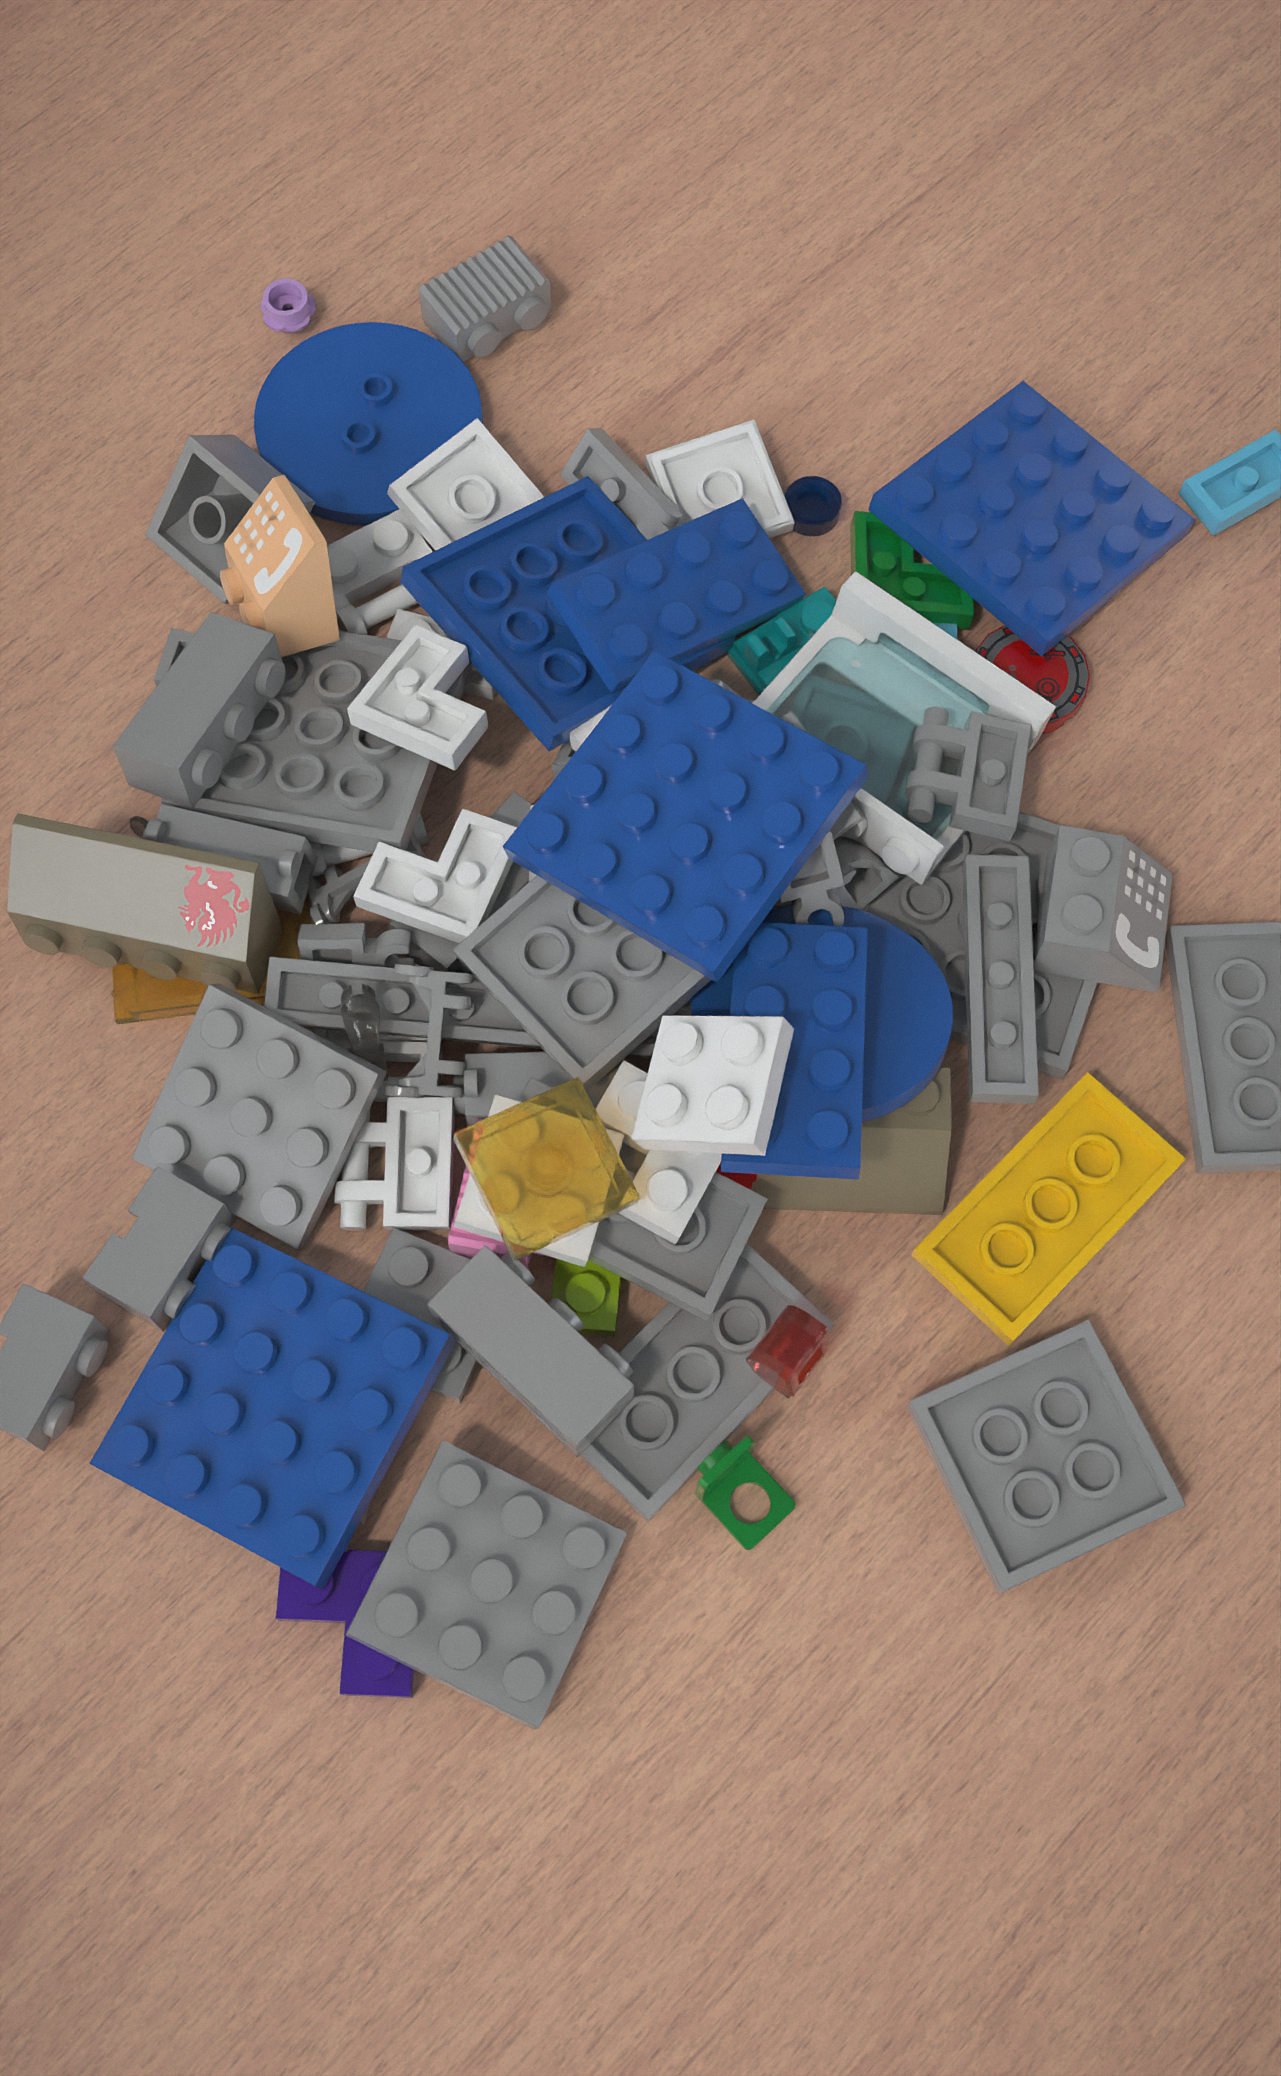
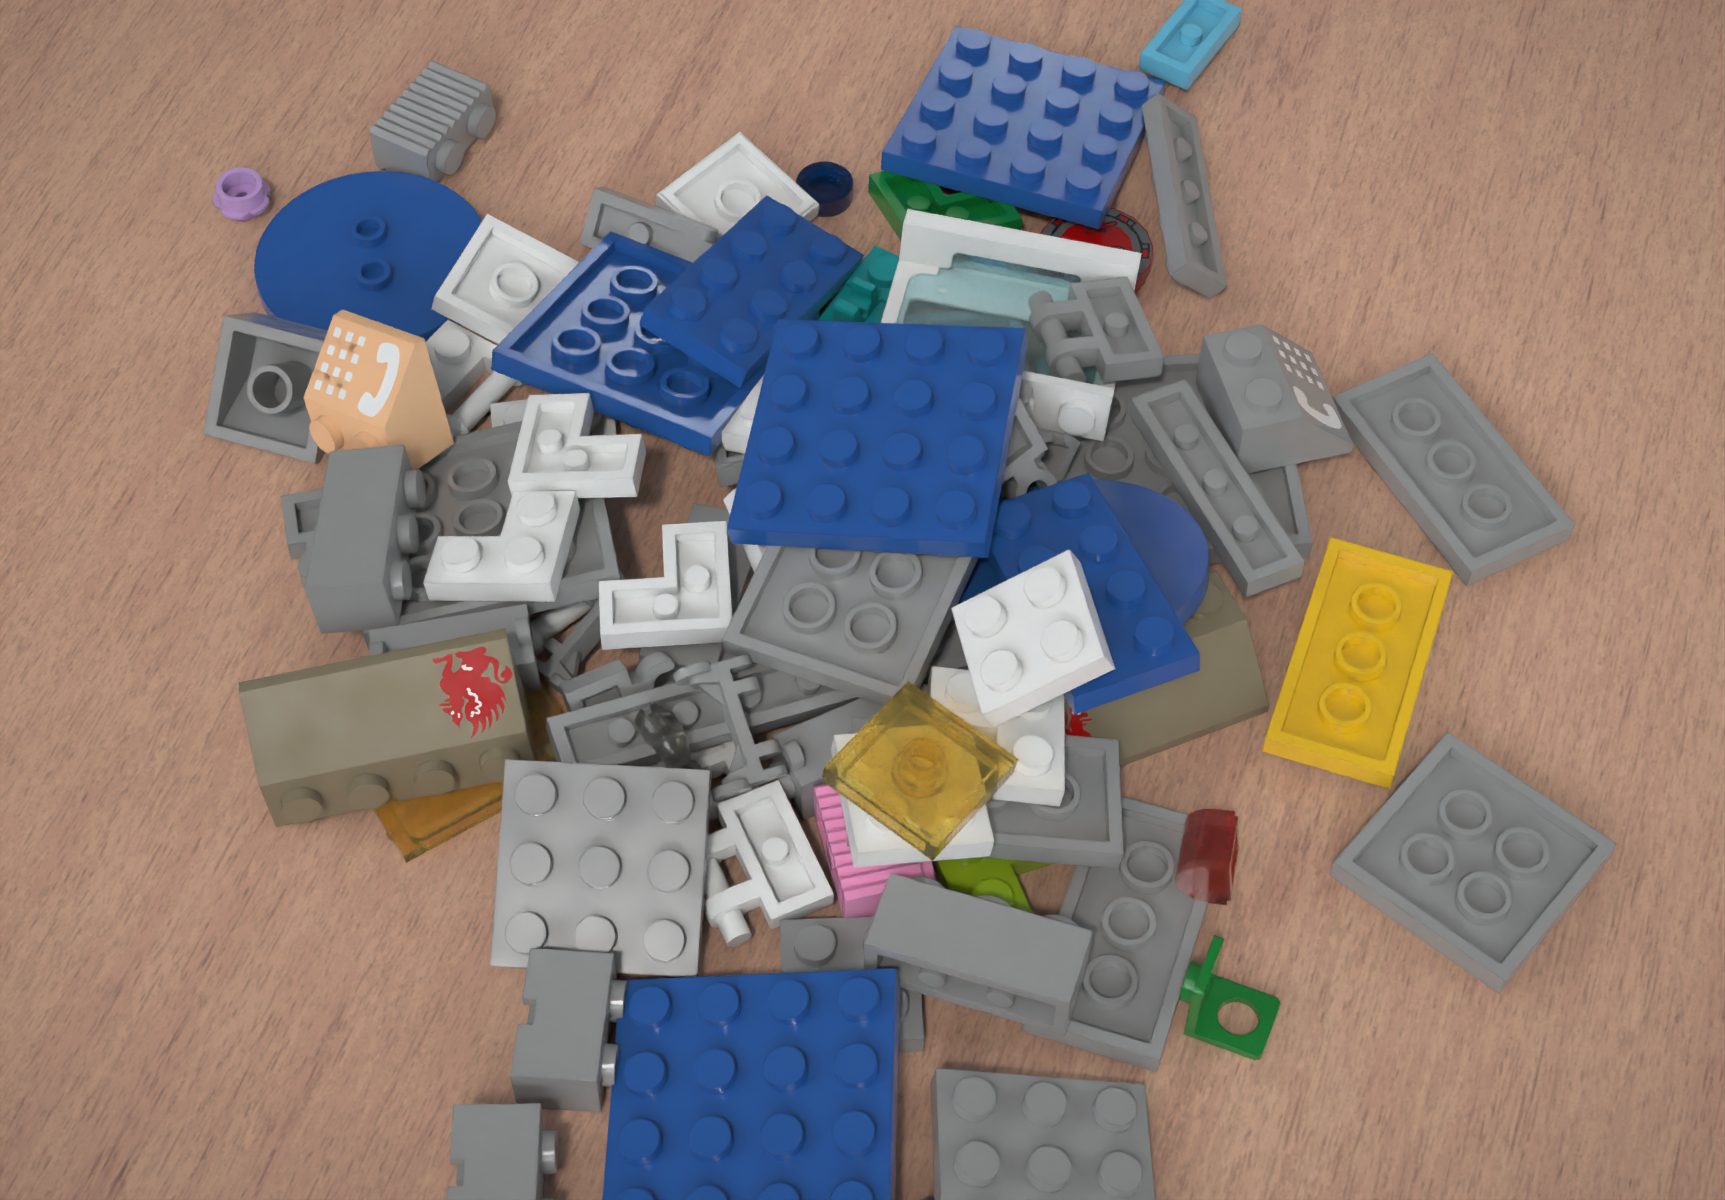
camera: 25 degrees left, 15 degrees down
(323, 792) = (515, 566): none -> white plate
(1143, 652) = (1183, 197): none -> light grey plate

